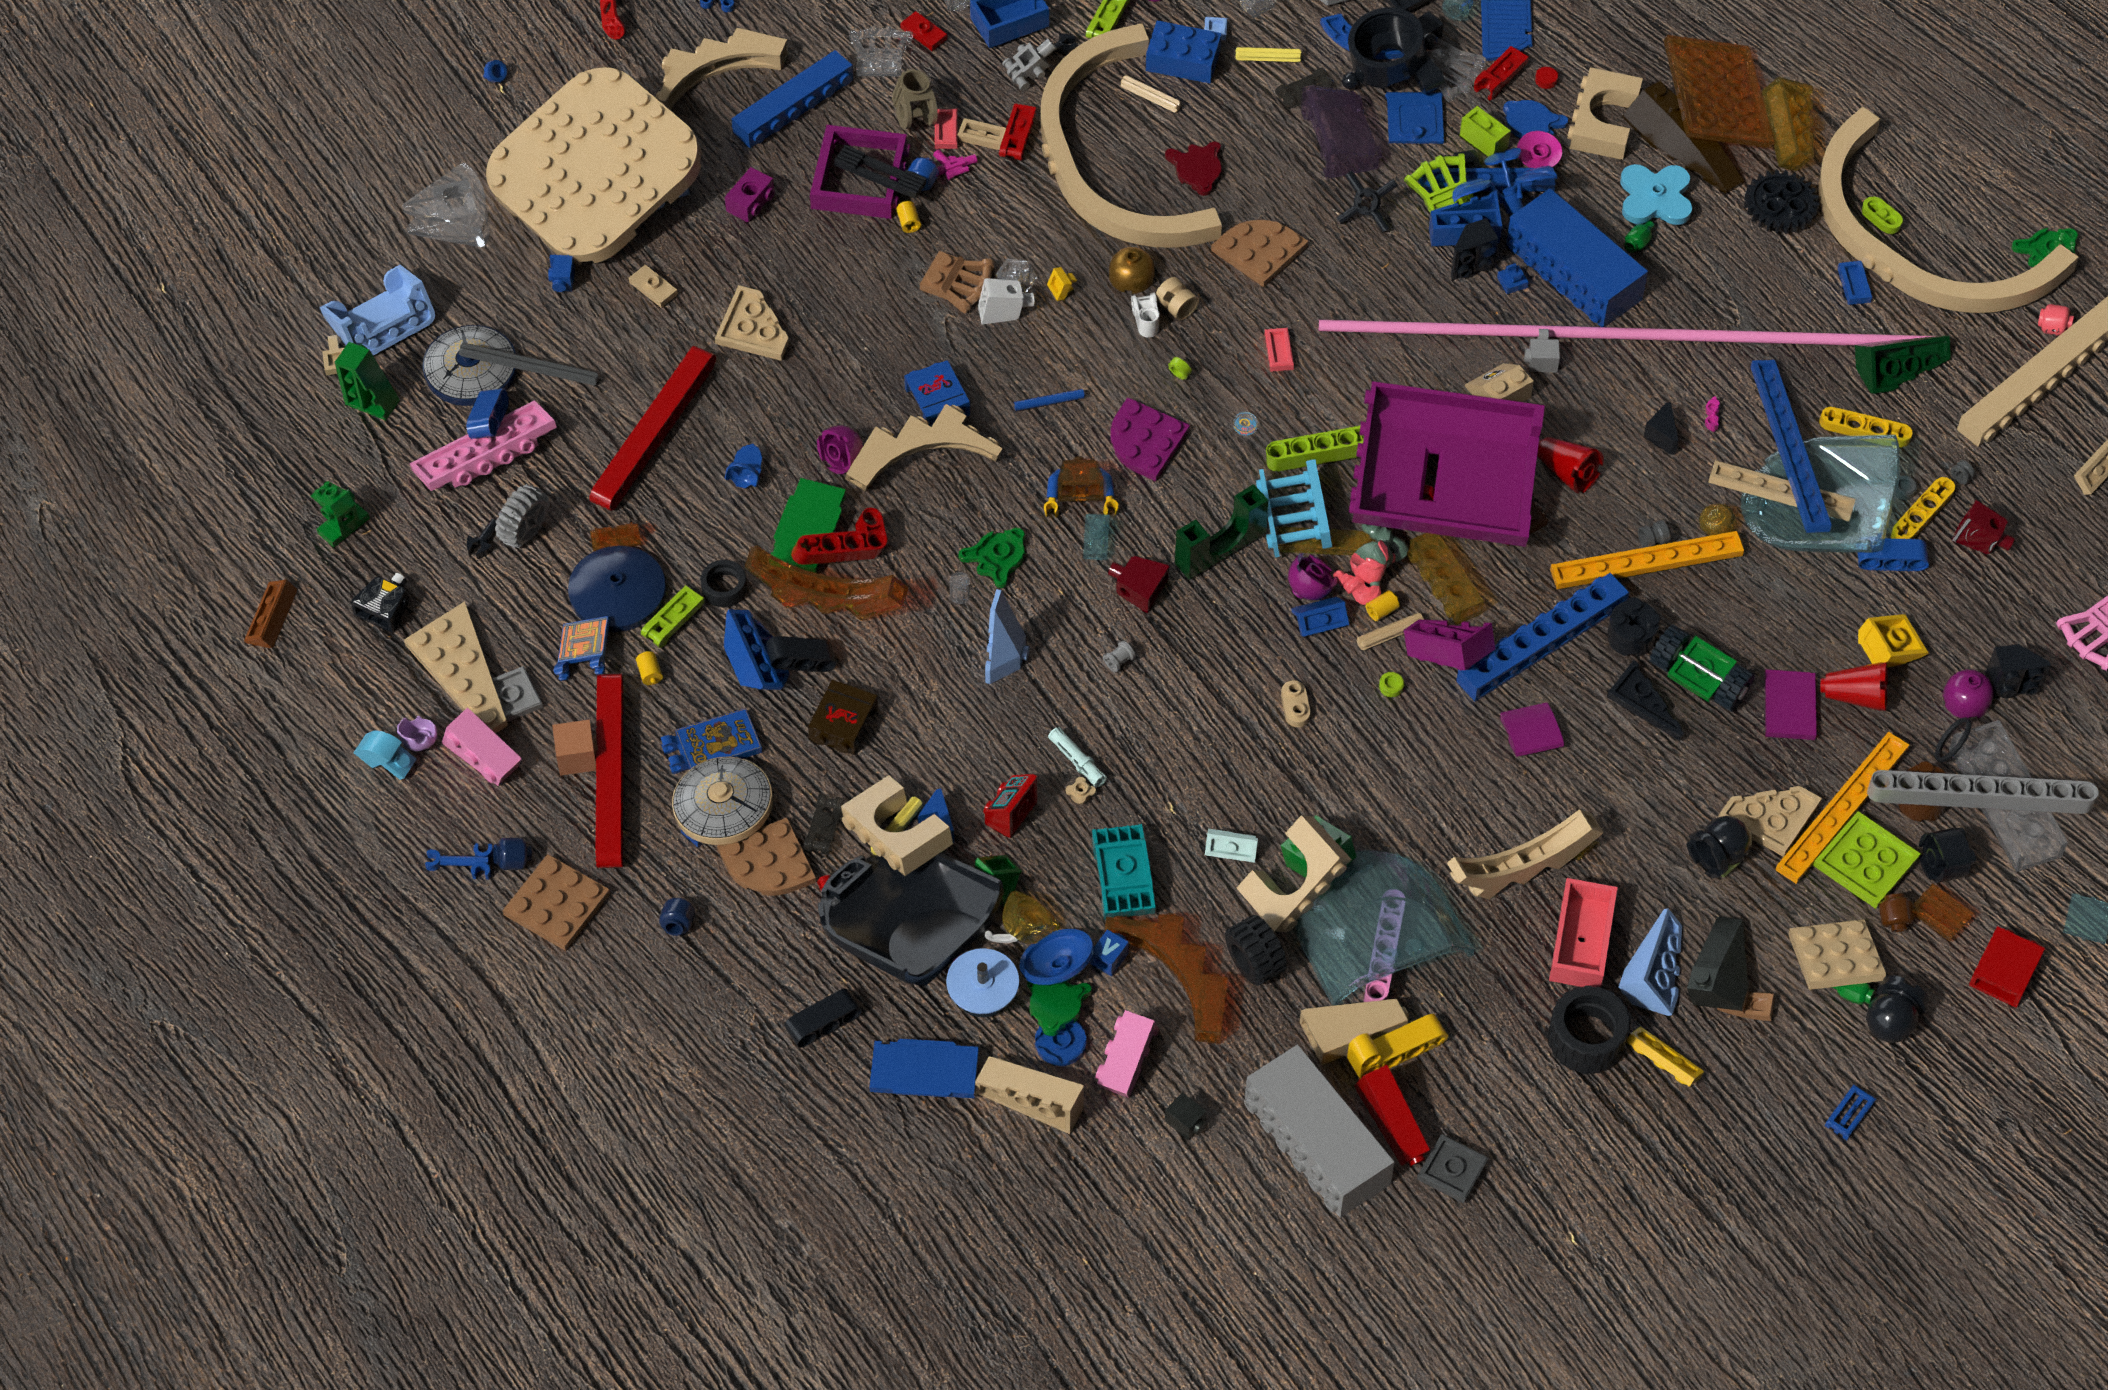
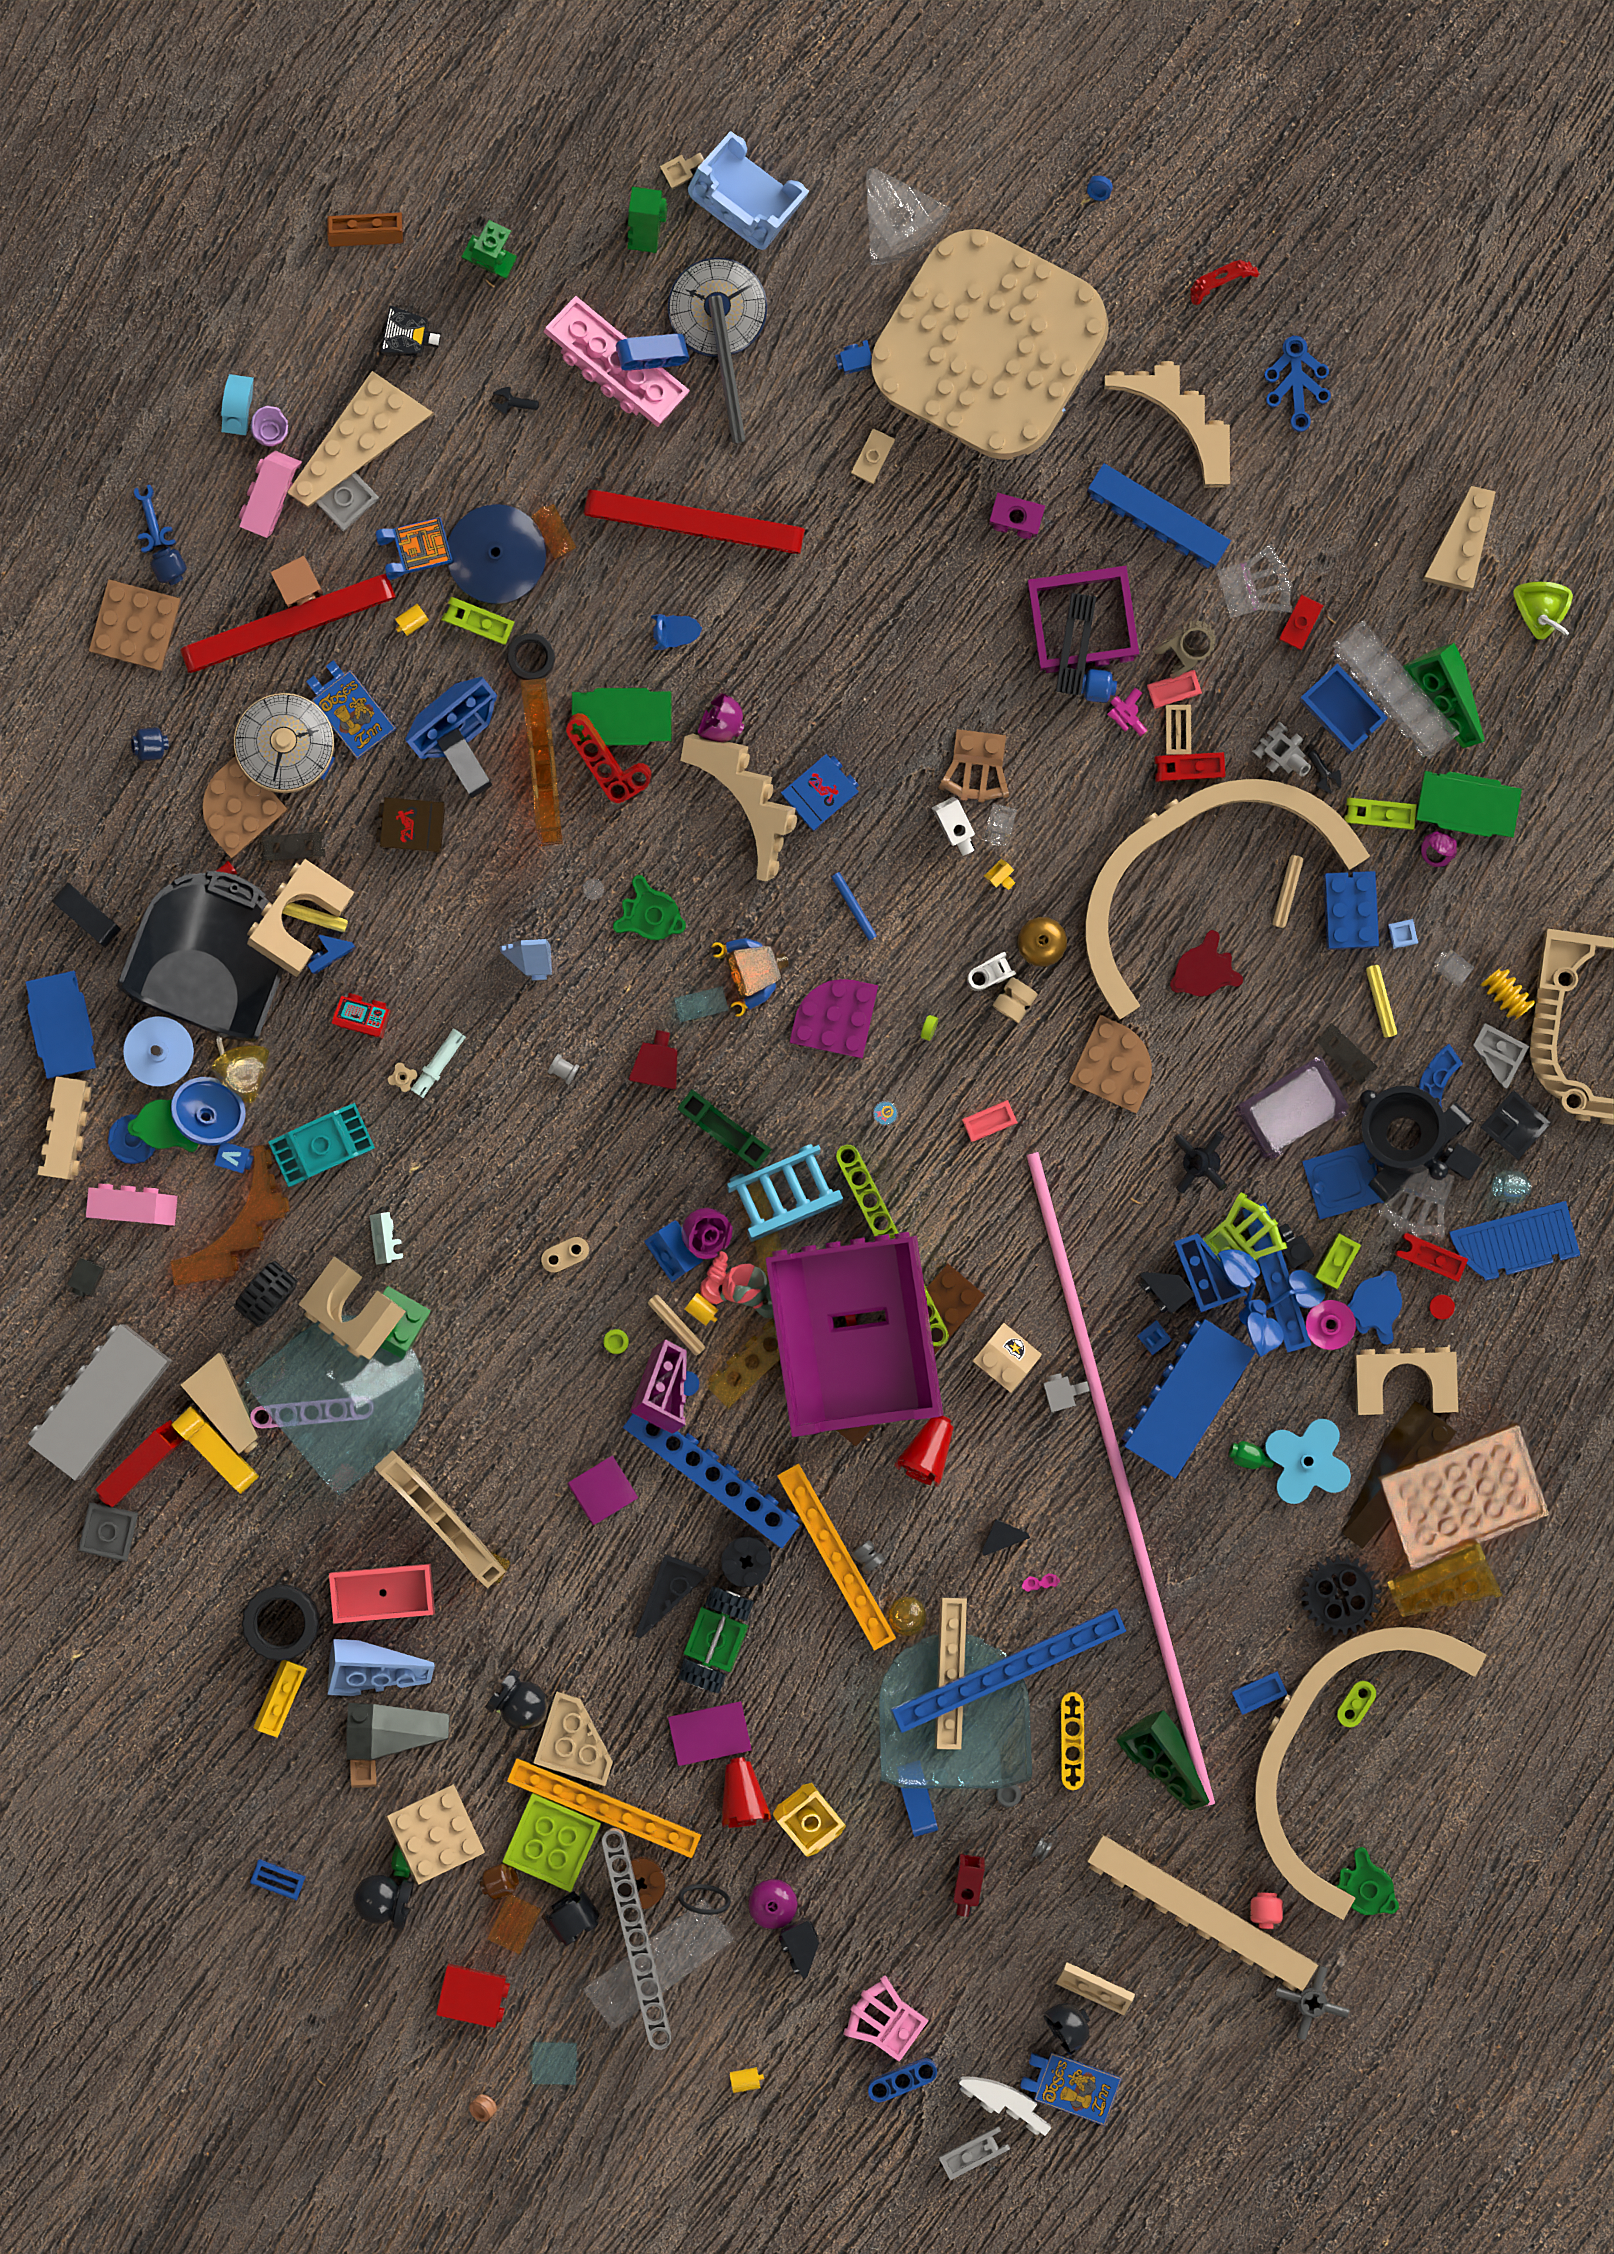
camera: 75 degrees right, 30 degrees up
(522, 516) = (538, 434): light grey gear -> none
(752, 326) = (851, 576): tan plate -> none
(908, 217) = (1040, 689): yellow piece -> none
(1002, 869) = (284, 1030): green slope -> none
(1921, 510) = (984, 1815): yellow beam -> none

